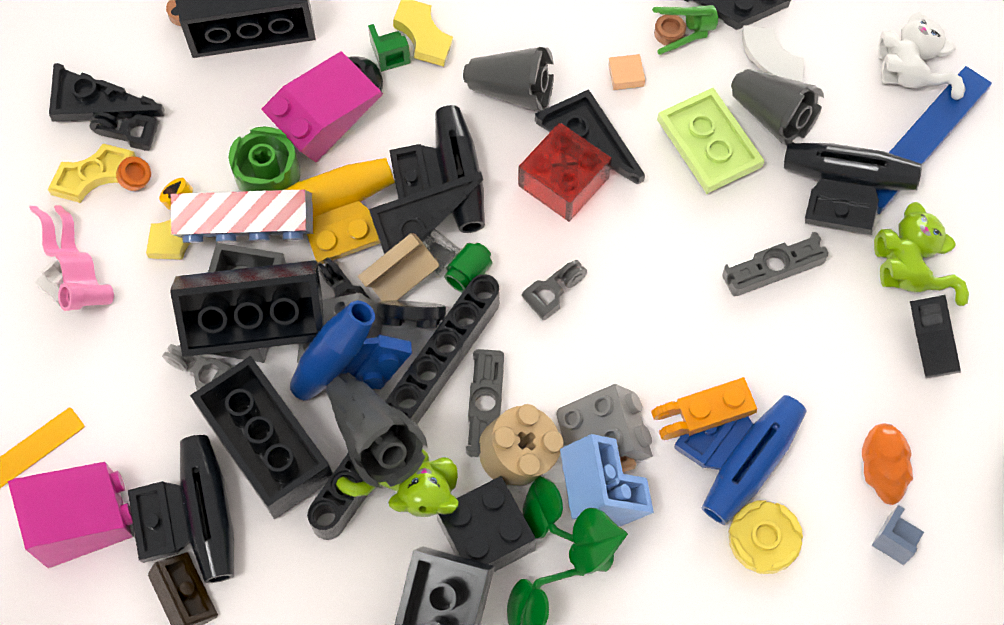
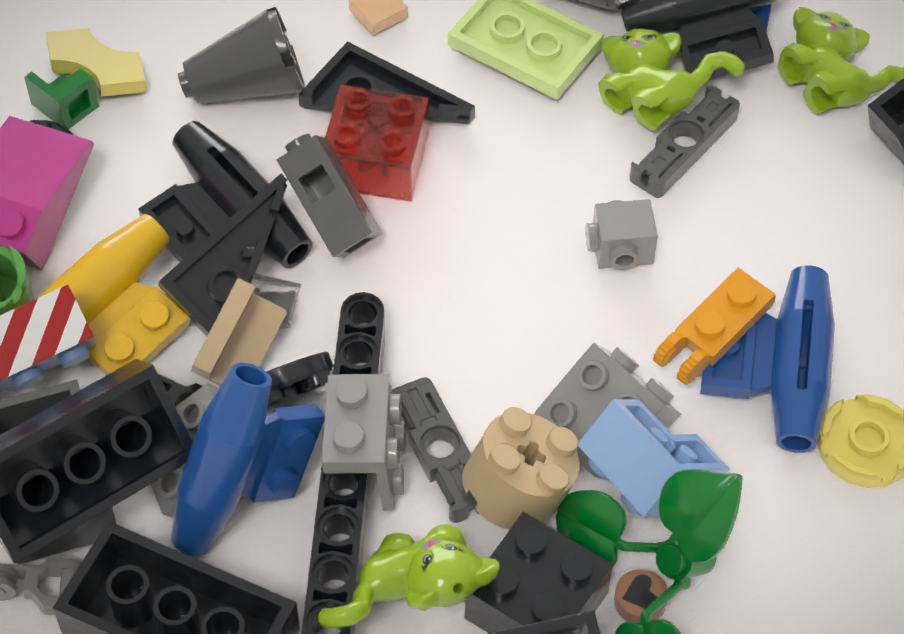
camera: 30 degrees left, 10 degrees down
(377, 436) = (345, 525): dark grey cone -> none
(434, 375) = (365, 431): none -> light grey bracket
(467, 264) = (321, 300): green brick -> none
(507, 197) = (328, 195): none -> dark grey brick
(550, 561) = (636, 592): none -> nougat tile
(570, 273) = (451, 252): dark grey piece -> none
(687, 312) = (622, 234): none -> light grey brick
(769, 215) = (642, 75): none -> lime animal

